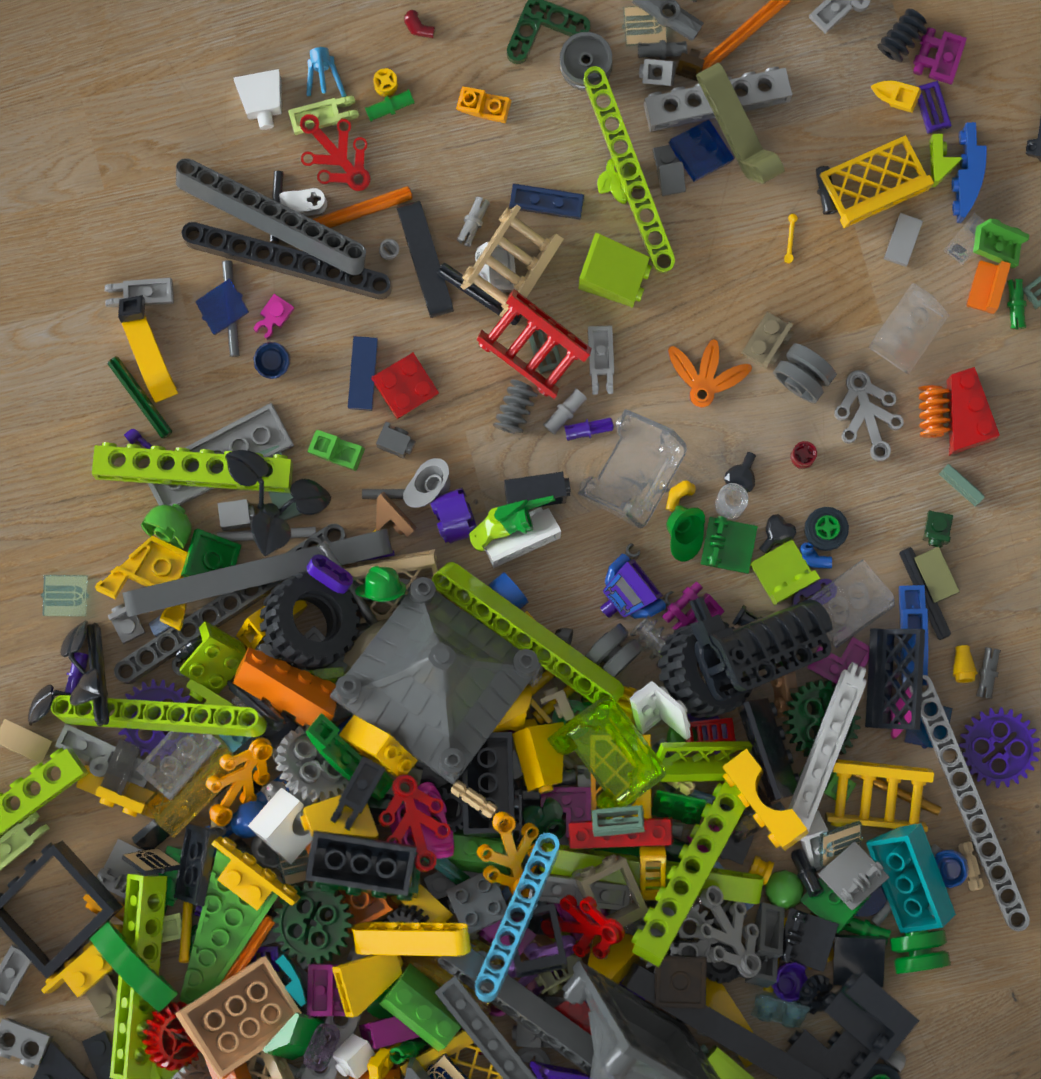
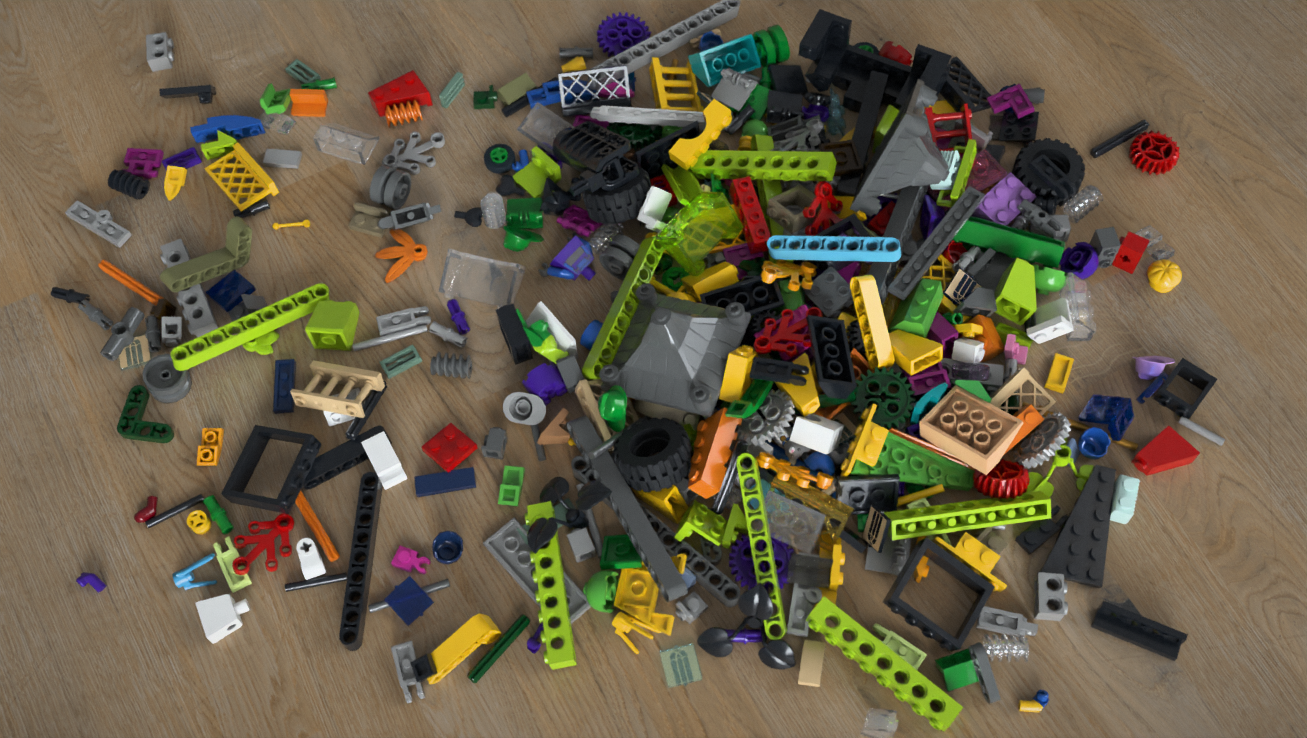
camera: 100 degrees left, 20 degrees down
(96, 661) = (734, 611): black axle -> none
(126, 541) = (625, 623): none -> yellow plant
(132, 967) = (962, 515): green slope -> none
(186, 650) = (699, 545): black rock -> none
(270, 216) = (324, 578): dark grey beam -> none
(329, 574) = (613, 443): dark purple beam -> none
(393, 248) = (340, 485): light grey hinge -> none
(400, 304) = (384, 460): none -> white piece
(410, 57) = (174, 511): none -> black bar
(442, 143) = (249, 459): none -> black window
(455, 548) = (570, 372): none -> dark grey slope
(473, 221) = (316, 431): light grey pin -> none
(473, 799) = (757, 300): tan axle -> none
(537, 320) = (382, 355): red fence -> none
(563, 706) = (669, 275): dark tan bracket -> none
(582, 334) = (390, 337): none -> light grey bar
(618, 825) = (749, 222): sand green tile -> none
(652, 857) = (765, 189): yellow slope -> none
(678, 491) = (491, 249): yellow arm -> none
(735, 586) = (554, 199): none -> black hair
(753, 390) = (409, 216): none -> dark grey hinge
(806, 451) = (450, 181): dark red wheel -> none

